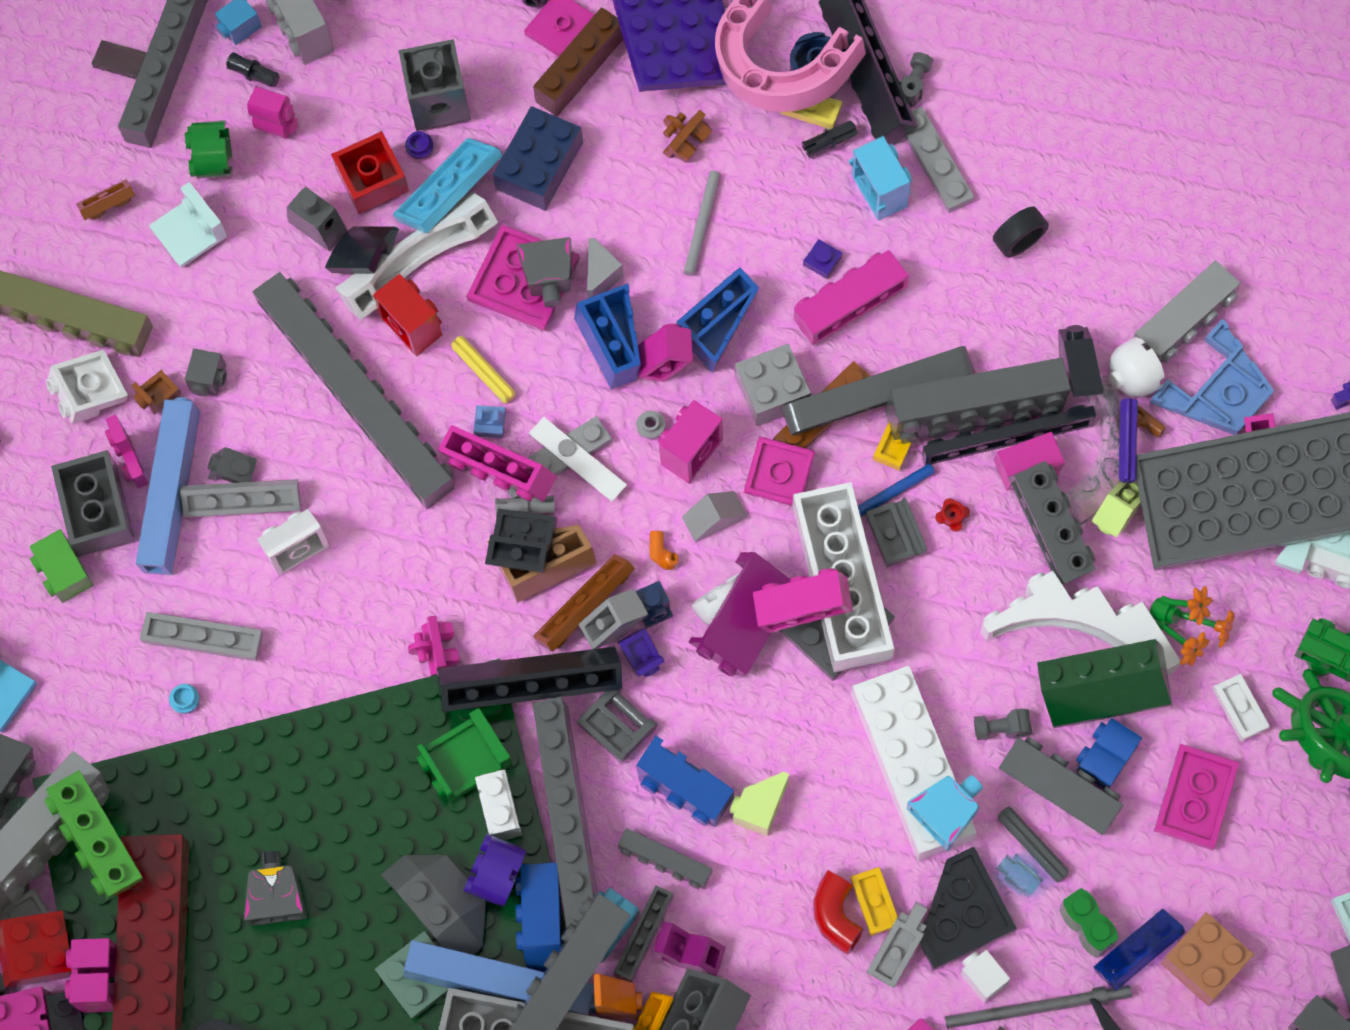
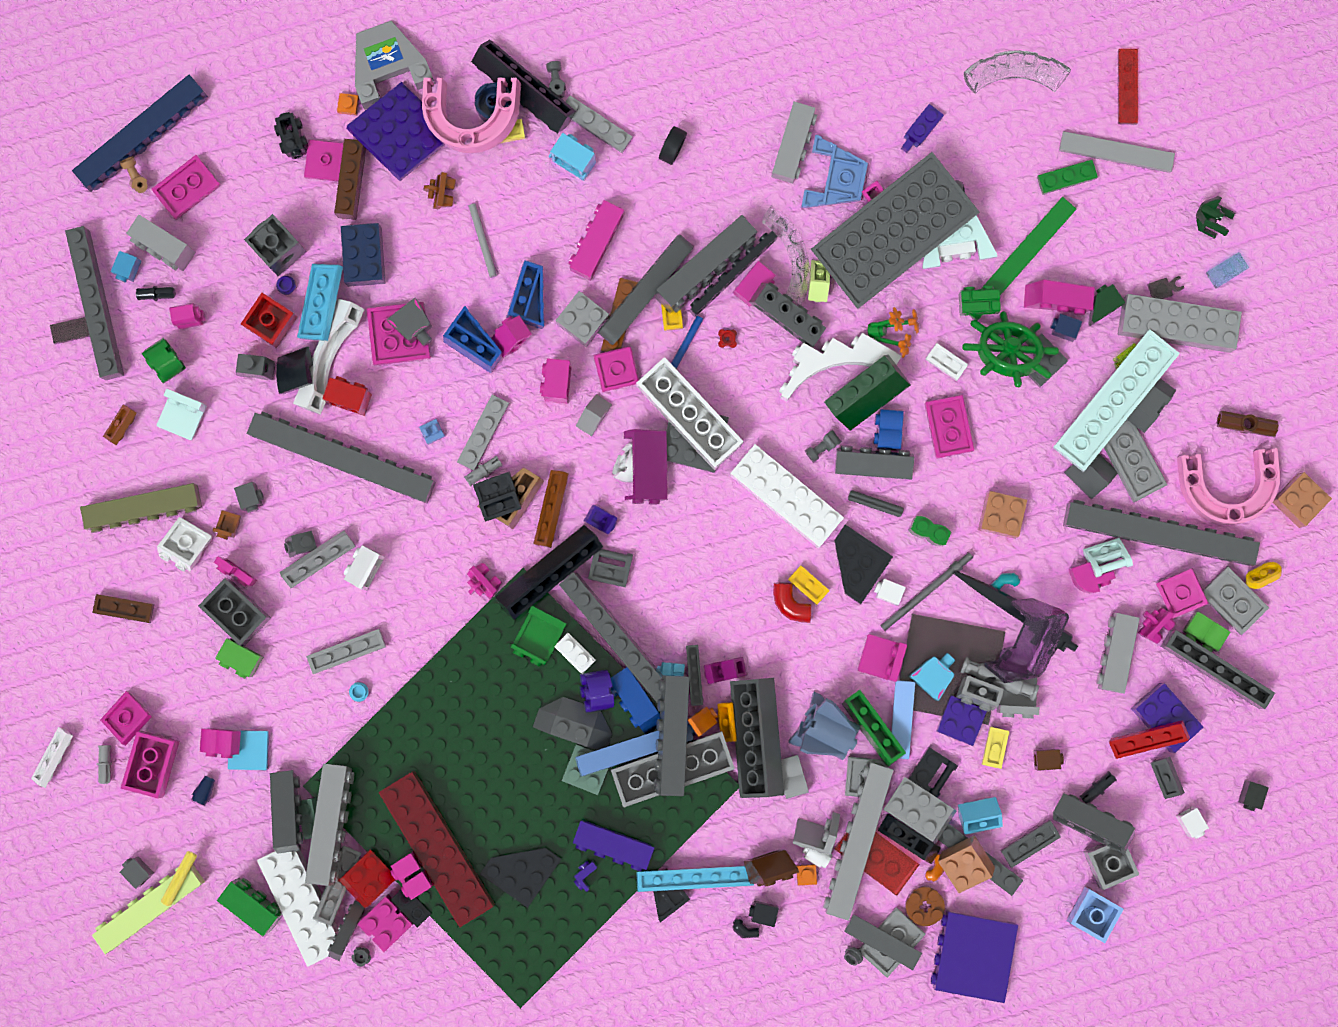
camera: 35 degrees left, 15 degrees up
(93, 836) = (367, 804): bright green brick -> none
(169, 473) = (270, 578): medium blue brick -> none
(273, 893) = (480, 771): dark grey torso -> none
(483, 369) = (409, 402): light yellow axle -> none
(497, 463) = (455, 457): dark pink brick -> none
(580, 461) = (499, 426): white sticker -> none
(603, 269) = (442, 303): light grey slope -> none
(613, 619) = (575, 511): light grey brick -> none
(650, 432) = (528, 387): light grey plate -> none
(655, 603) = (590, 488): dark blue brick -> none
(659, 554) = (576, 455): orange arm -> none
(664, 859) = (681, 627): dark grey piece -> none
(683, 783) = (668, 580): blue wedge -> none
(759, 804) = (716, 568): yellowish green slope -> none
(802, 600) = (677, 443): dark pink brick -> none
(822, 259) = (565, 223): dark purple plate -> none
(829, 138) = (527, 146): black axle -> none
(896, 532) = (702, 367): dark grey plate -> none
(898, 946) = (835, 602): light grey hinge -> none
(946, 808) = (822, 515): medium azure torso -> none
(1019, 875) = (877, 526): clear light blue brick -> none
(1080, 360) = (750, 207): black slope -> none
(1128, 440) = (803, 241): dark purple axle -> none
(1135, 369) = (784, 196): white cylinder -> none
(1139, 949) = (963, 529): clear blue plate -> none
(1150, 423) = (803, 221): dark orange arm -> none

